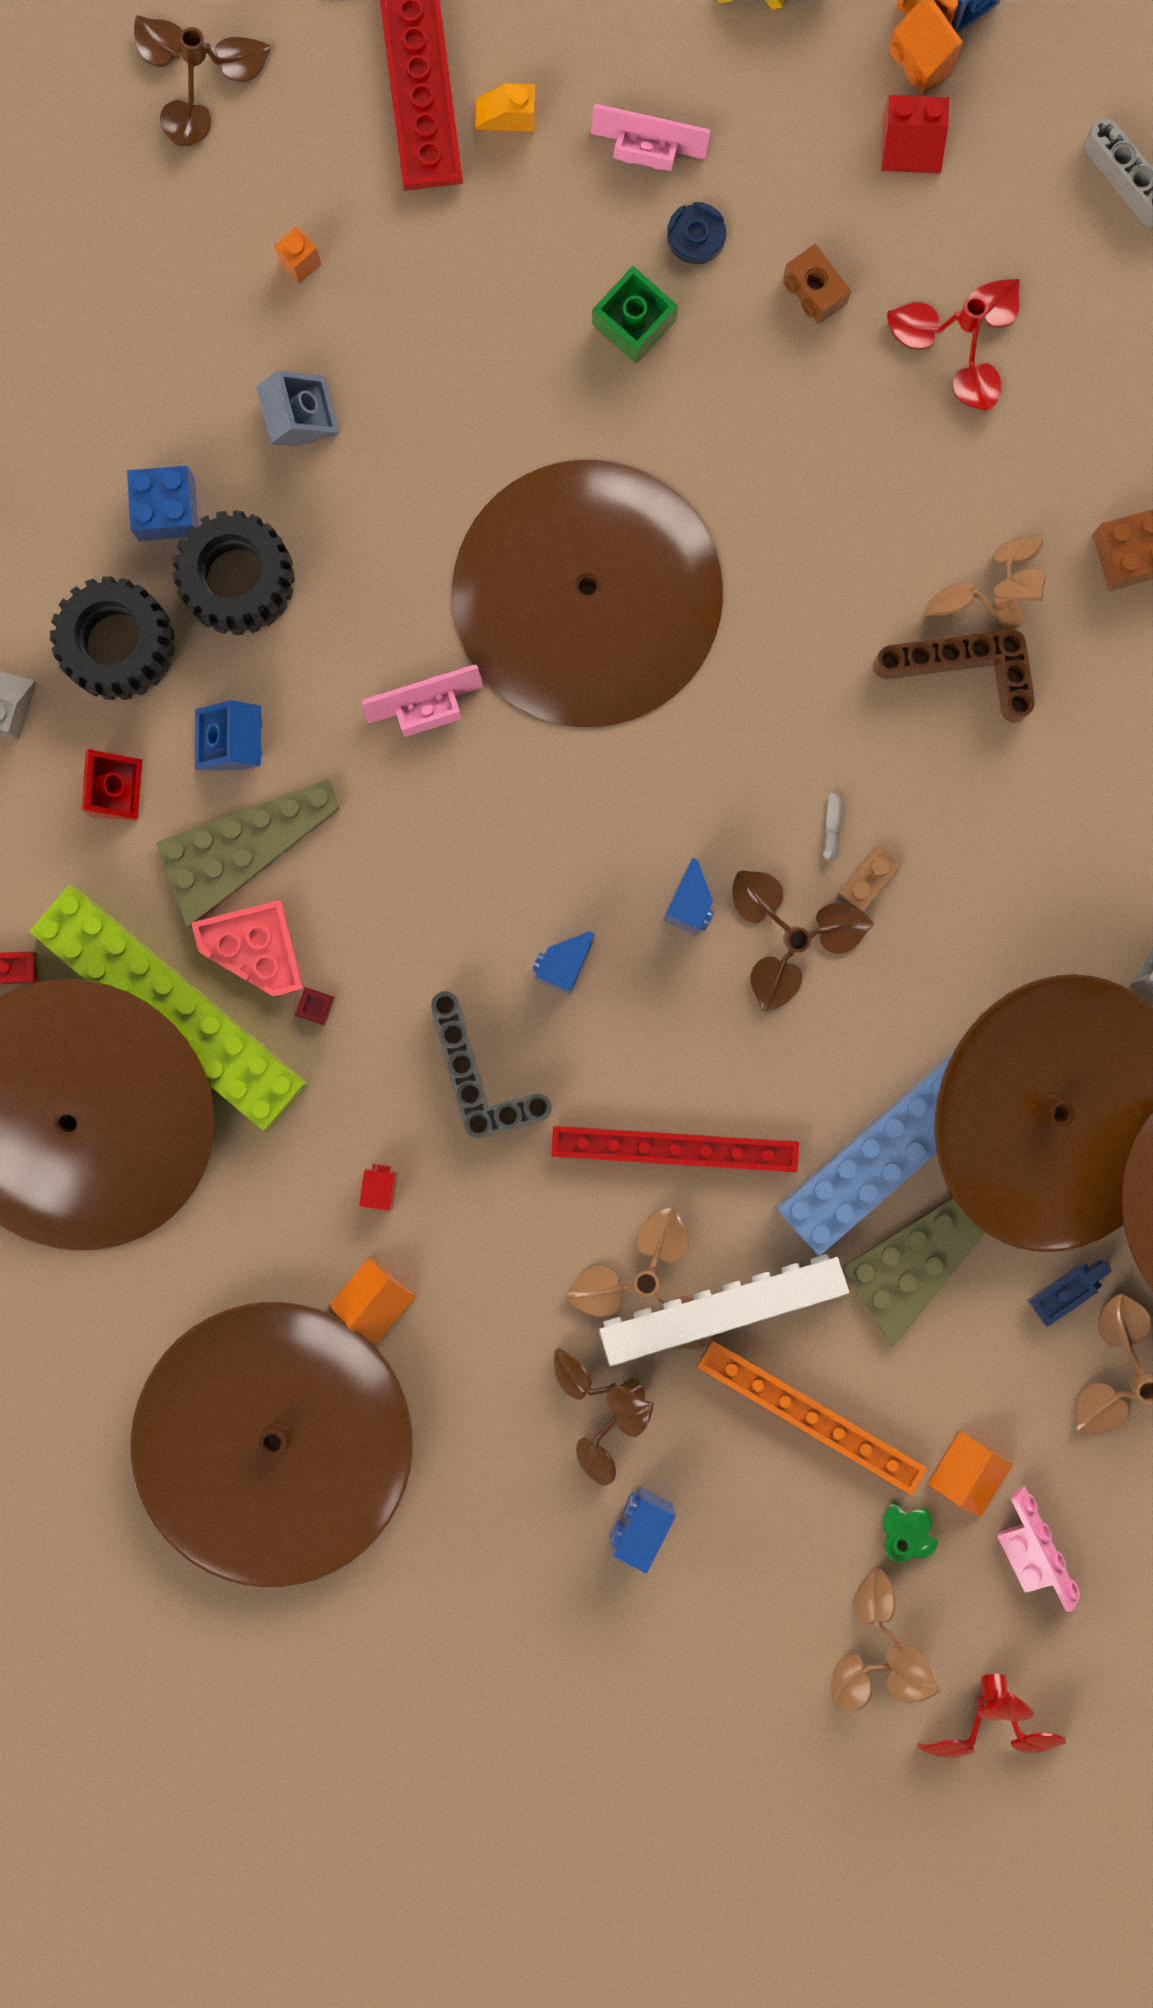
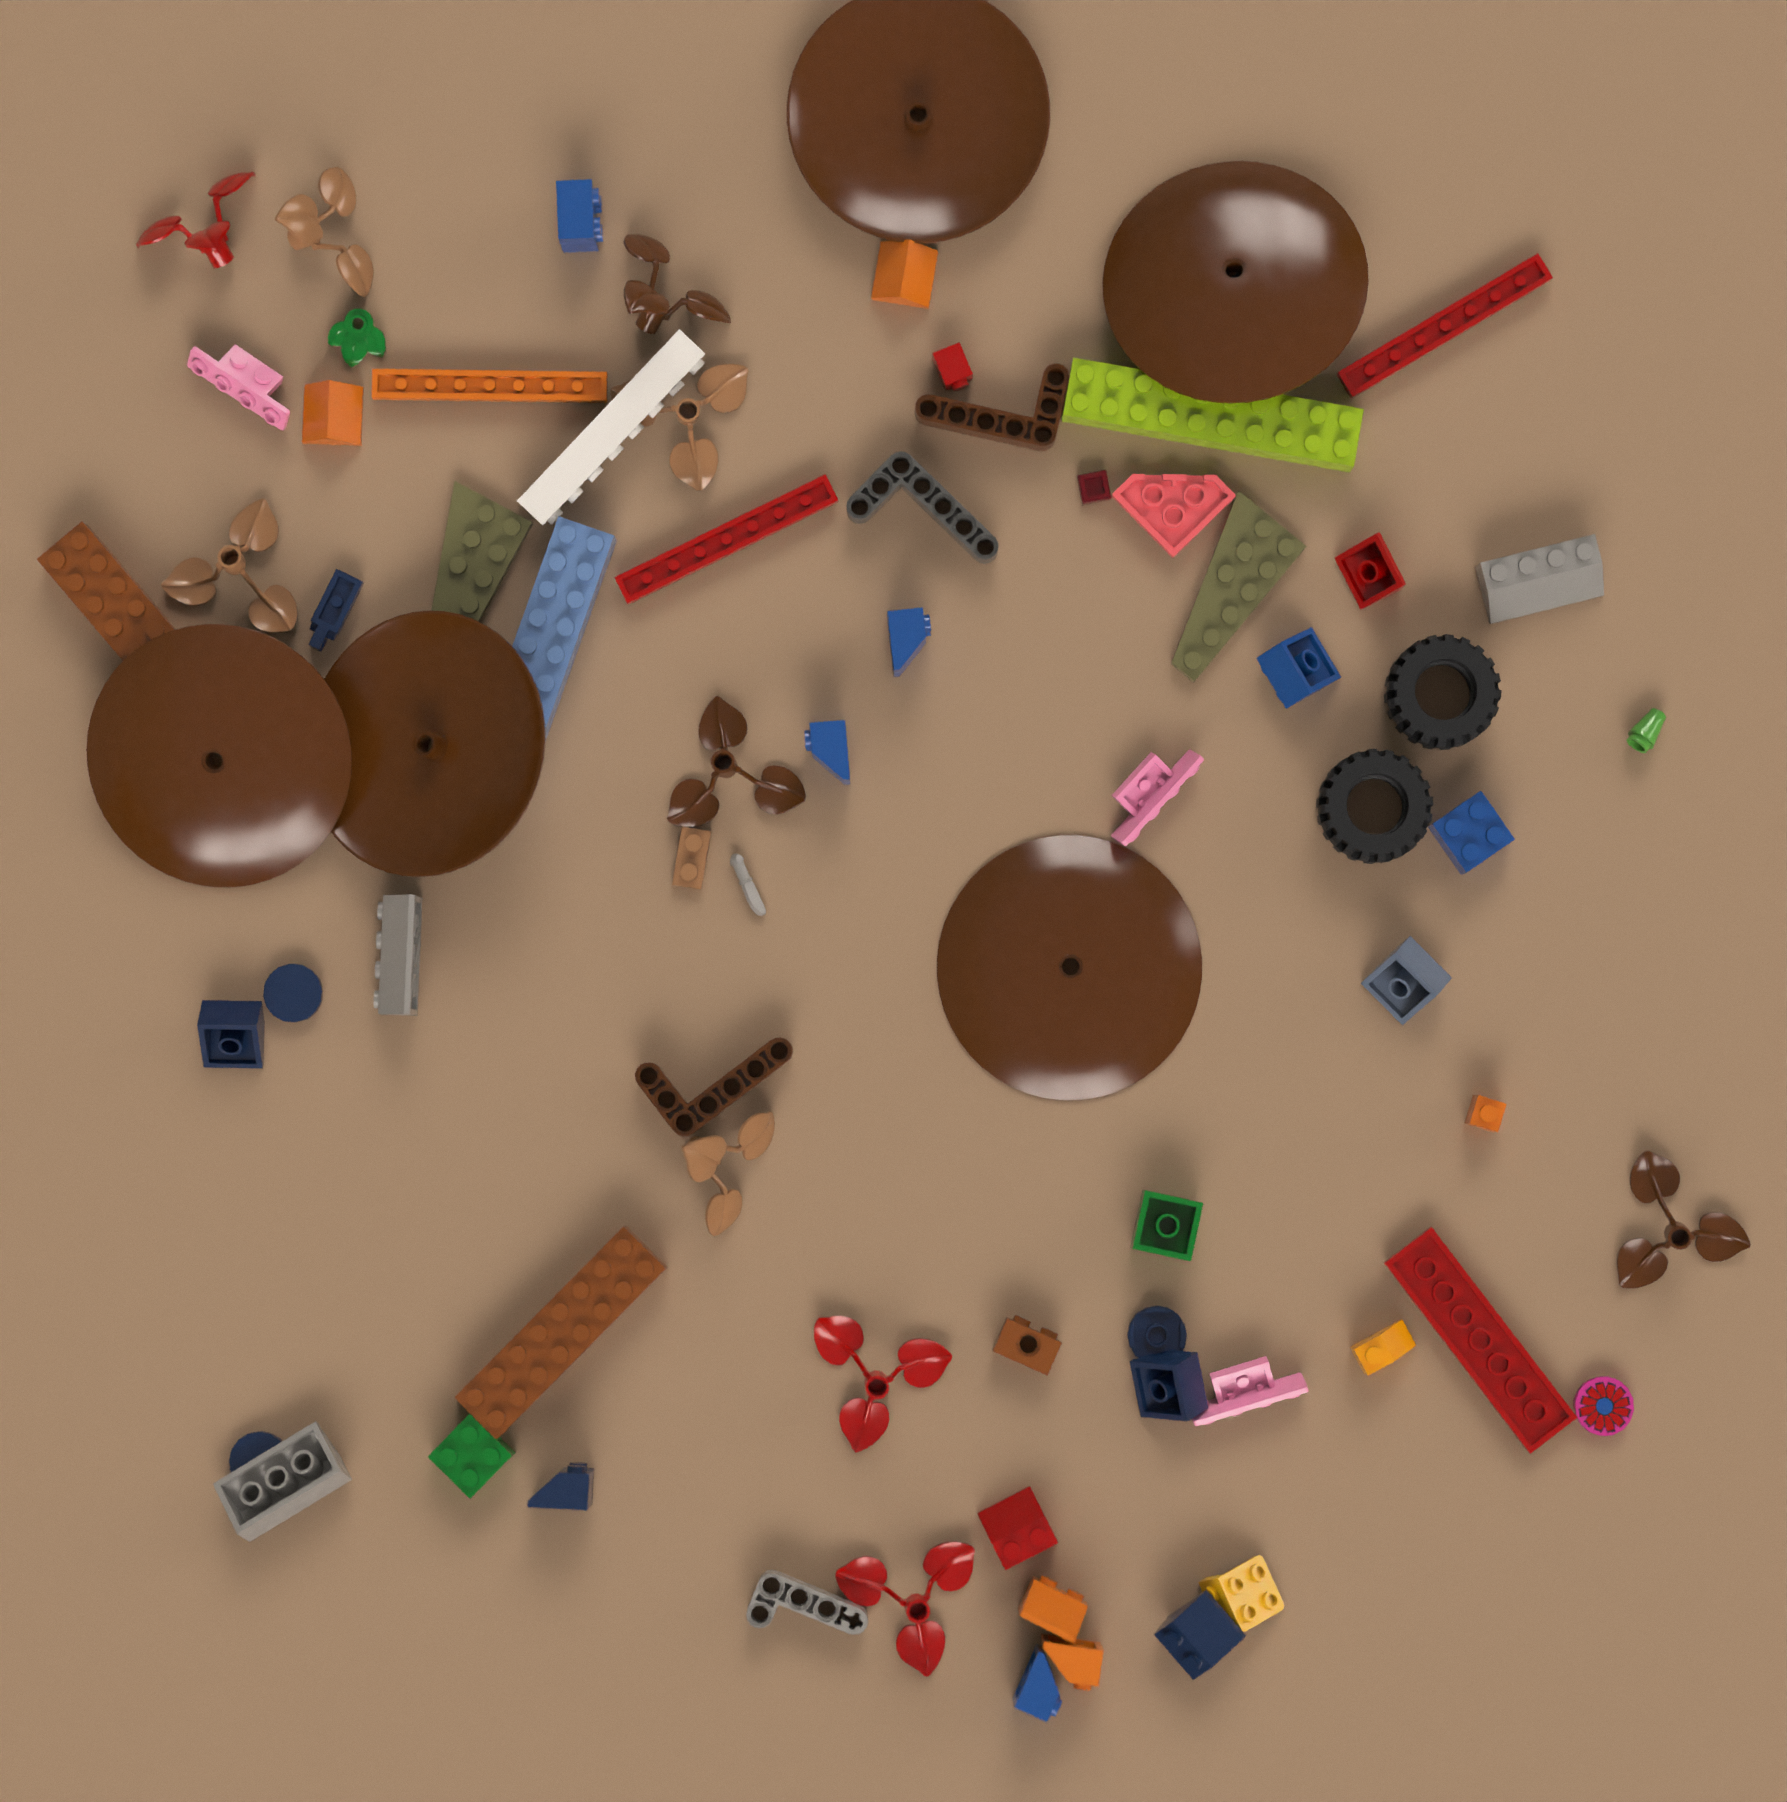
camera: 150 degrees right, 0 degrees up
(362, 1114) = (1000, 418): none -> reddish brown beam
(712, 177) = (1169, 1385): none -> dark blue slope
(1050, 92) = (921, 1643): none -> red plant

